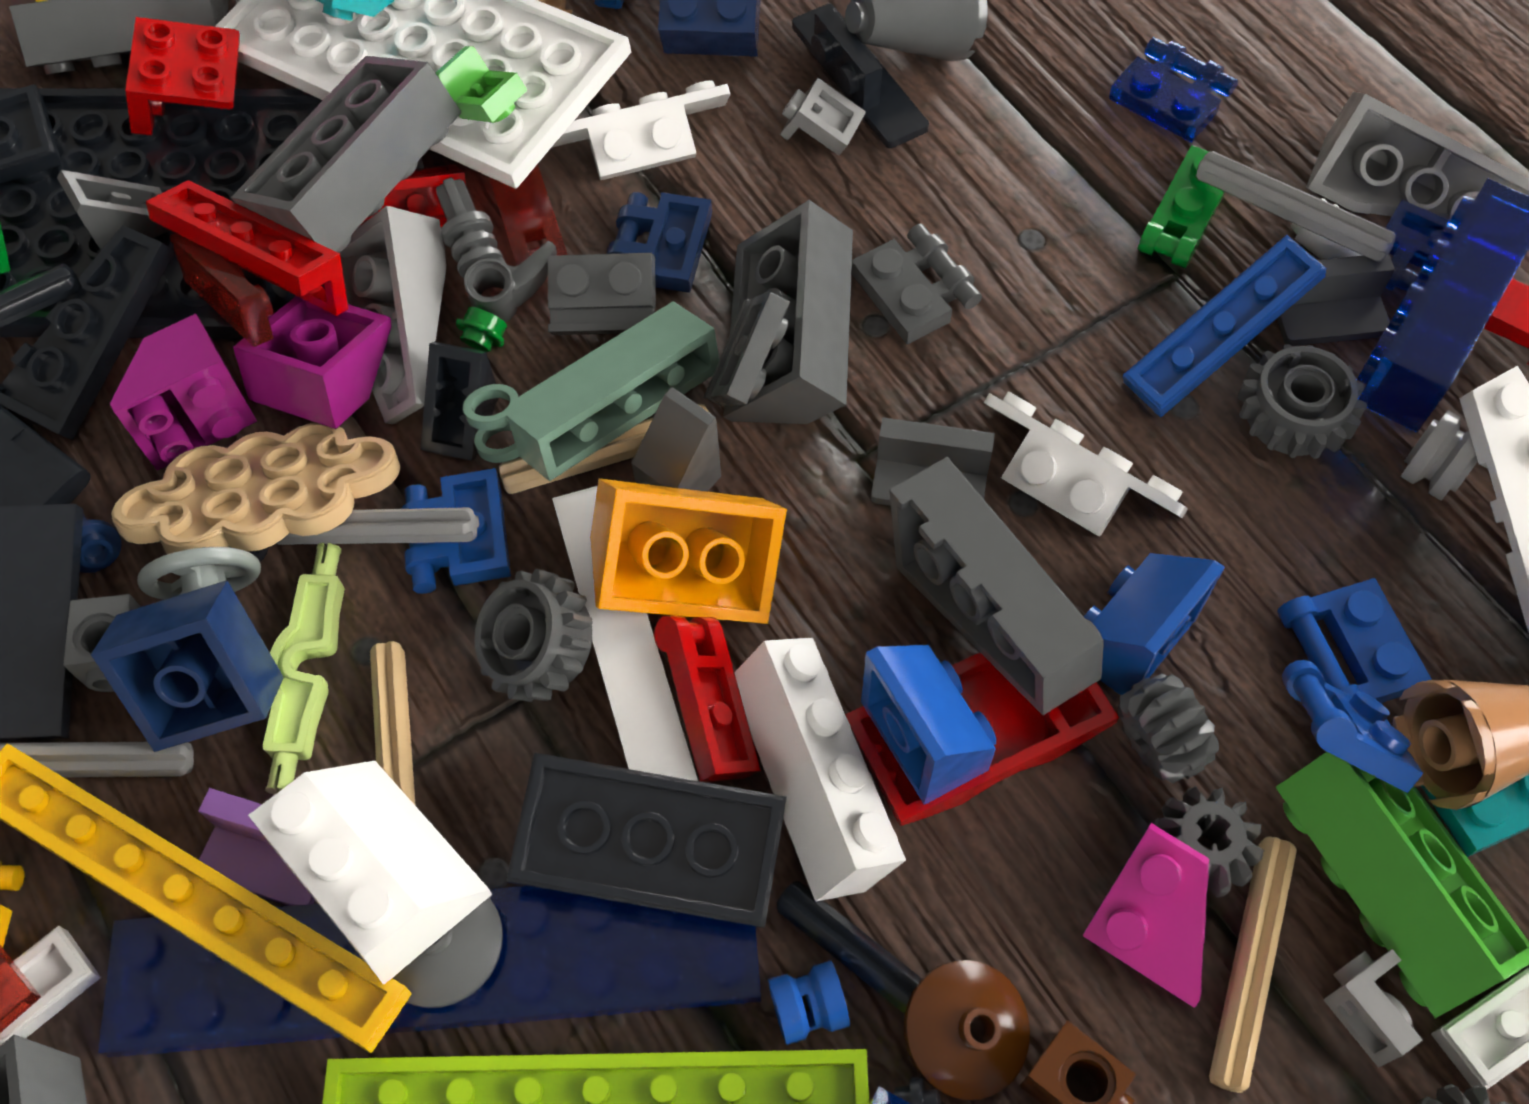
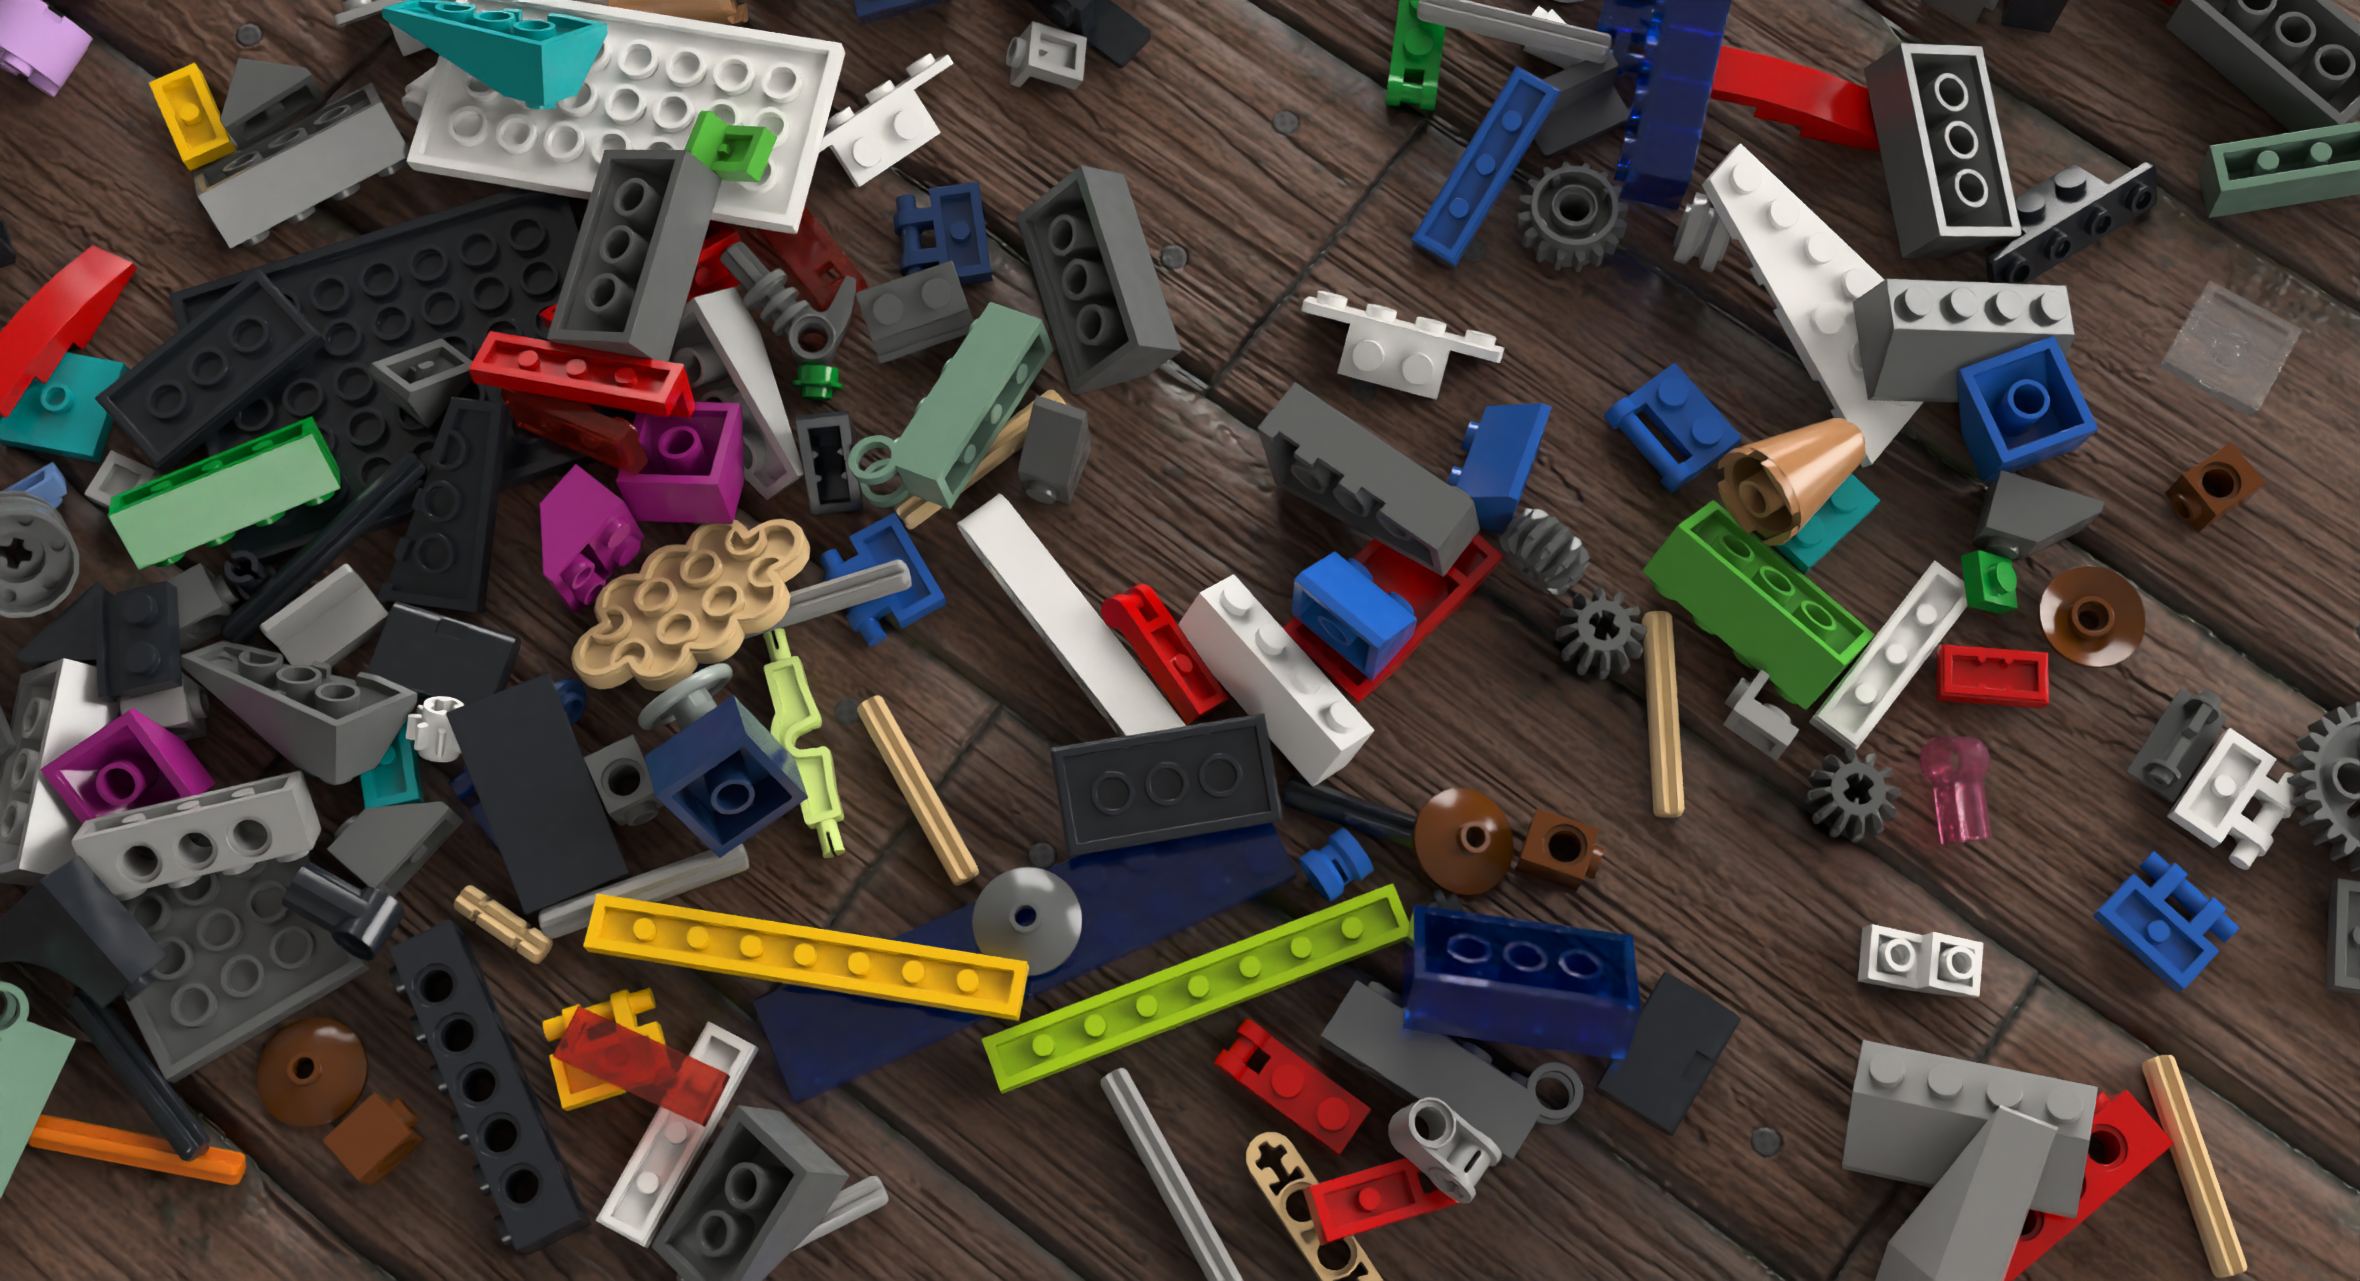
camera: 20 degrees left, 10 degrees up
(179, 66) = (407, 210): red bracket -> none
(243, 852) = (850, 899): medium lavender panel -> none
(370, 862) = (957, 880): white slope -> none
(533, 635) = (973, 655): dark grey gear -> none
(684, 551) = (1097, 534): light orange slope -> none
(740, 369) = (1077, 330): dark grey plate -> none
(903, 292) = (1187, 216): dark grey plate -> none
(914, 446) = (1260, 377): dark grey panel -> none
(1158, 914) = (1579, 703): dark pink wing -> none
(1352, 727) = (1686, 503): blue plate -> none

